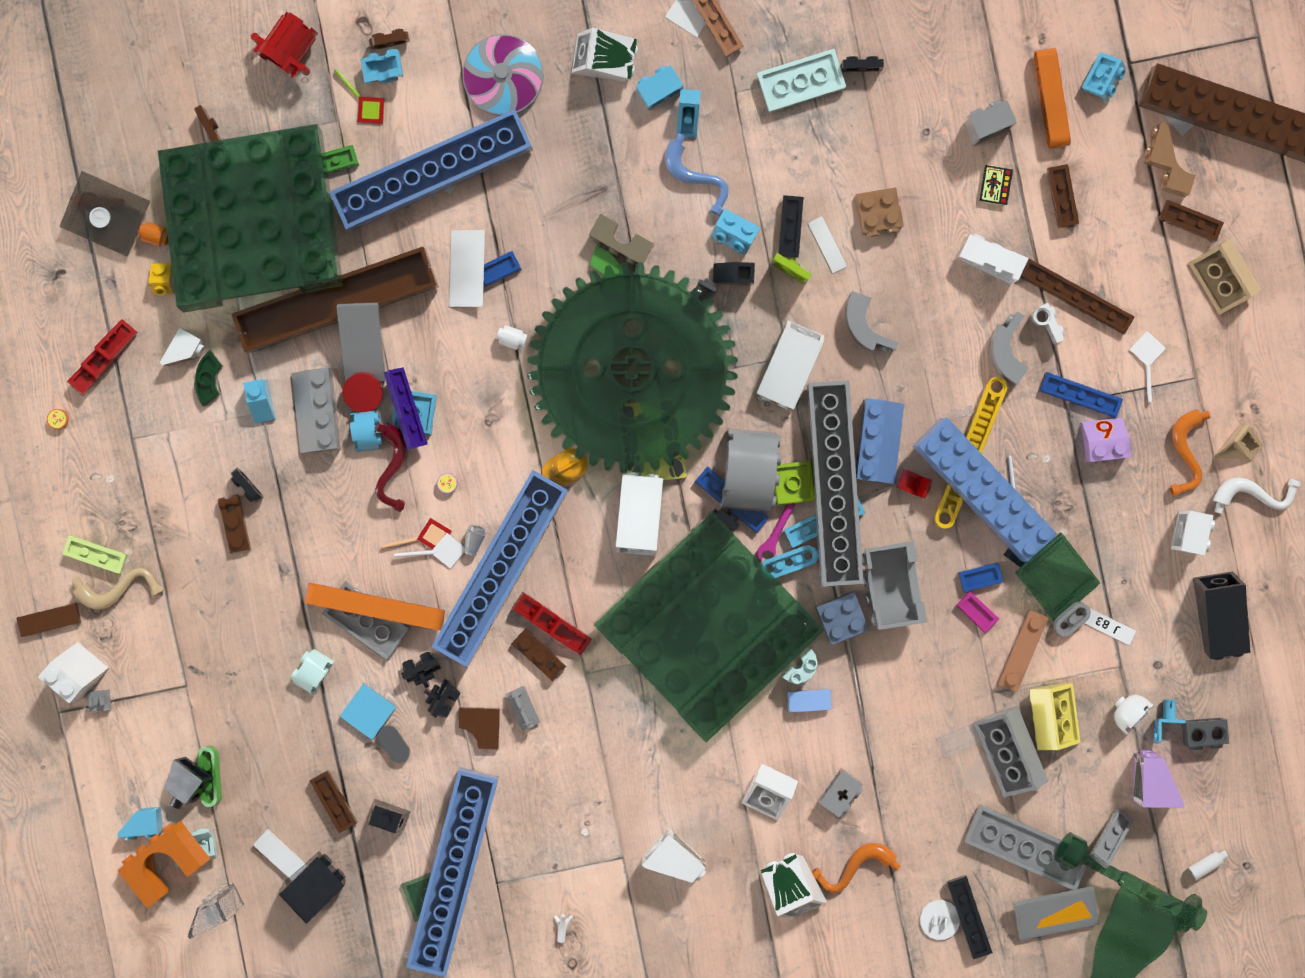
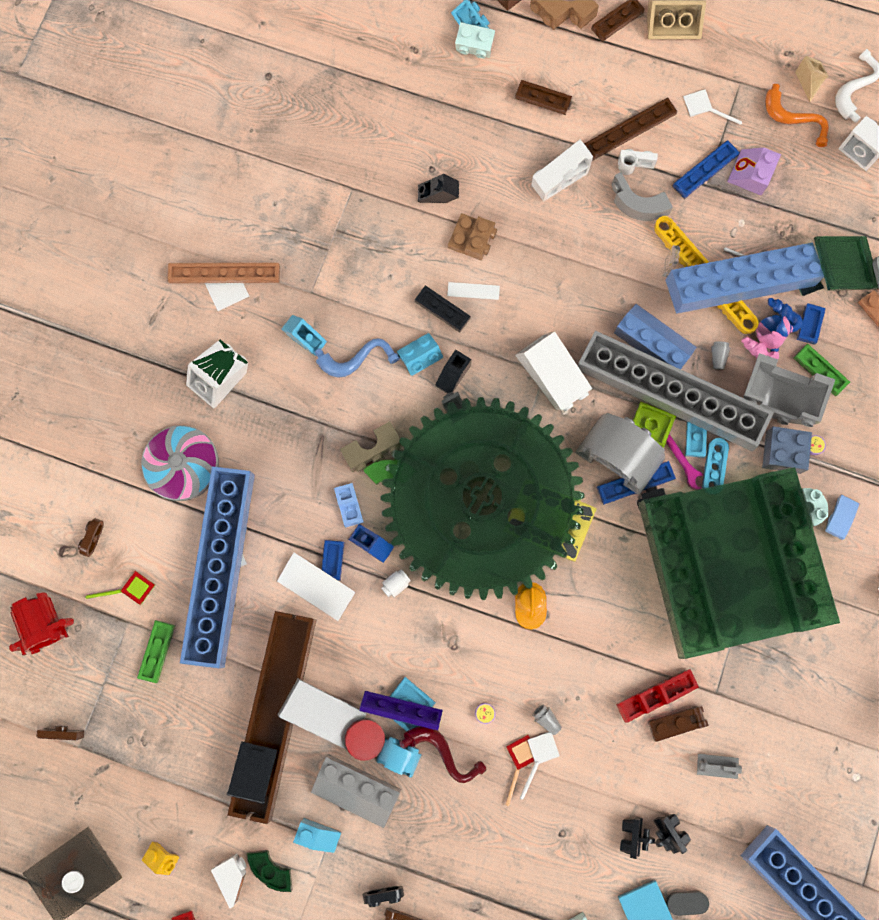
camera: 50 degrees left, 10 degrees down
(153, 234) = (118, 841): orange brick -> none
(249, 217) = (156, 748): clear green plate -> none
(278, 312) = (252, 772): none -> black container
(374, 606) = (556, 845): orange beam -> none
(375, 633) = (563, 860): light grey tile -> none
(382, 68) = (110, 556): medium azure cylinder -> none
(483, 724) = (713, 811): reddish brown tile -> none
(500, 568) = (588, 714): medium blue brick -> none
(534, 294) = (371, 543): none -> blue slope
(556, 252) = (348, 505): none -> light blue slope
(639, 514) = (607, 564): white slope -> none
(659, 86) = (269, 345): medium azure brick -> none
(791, 268) = (477, 325): lime plate -> none
(801, 80) = (333, 236): light aqua plate -> none
(853, 64) = (353, 180): black plate -> none
(857, 325) = (553, 302): light grey arch -> none
(863, 642) = (817, 445): none -> light yellow tile
(900, 508) = (720, 354): none -> light grey cone
(905, 152) = (438, 190): none -> black slope
(914, 483) = (707, 330): red bracket -> none
(940, 610) = (815, 363): none -> bright green tile
(950, 545) = (774, 330): none -> hair
(977, 612) = (838, 342): dark pink tile -> none
(989, 122) = (454, 114): light grey brick -> none
(996, 185) = (505, 140): piece -> none
(1052, 98) = (464, 64): orange beam -> none
(1082, 93) = (474, 40): none -> light aqua bracket

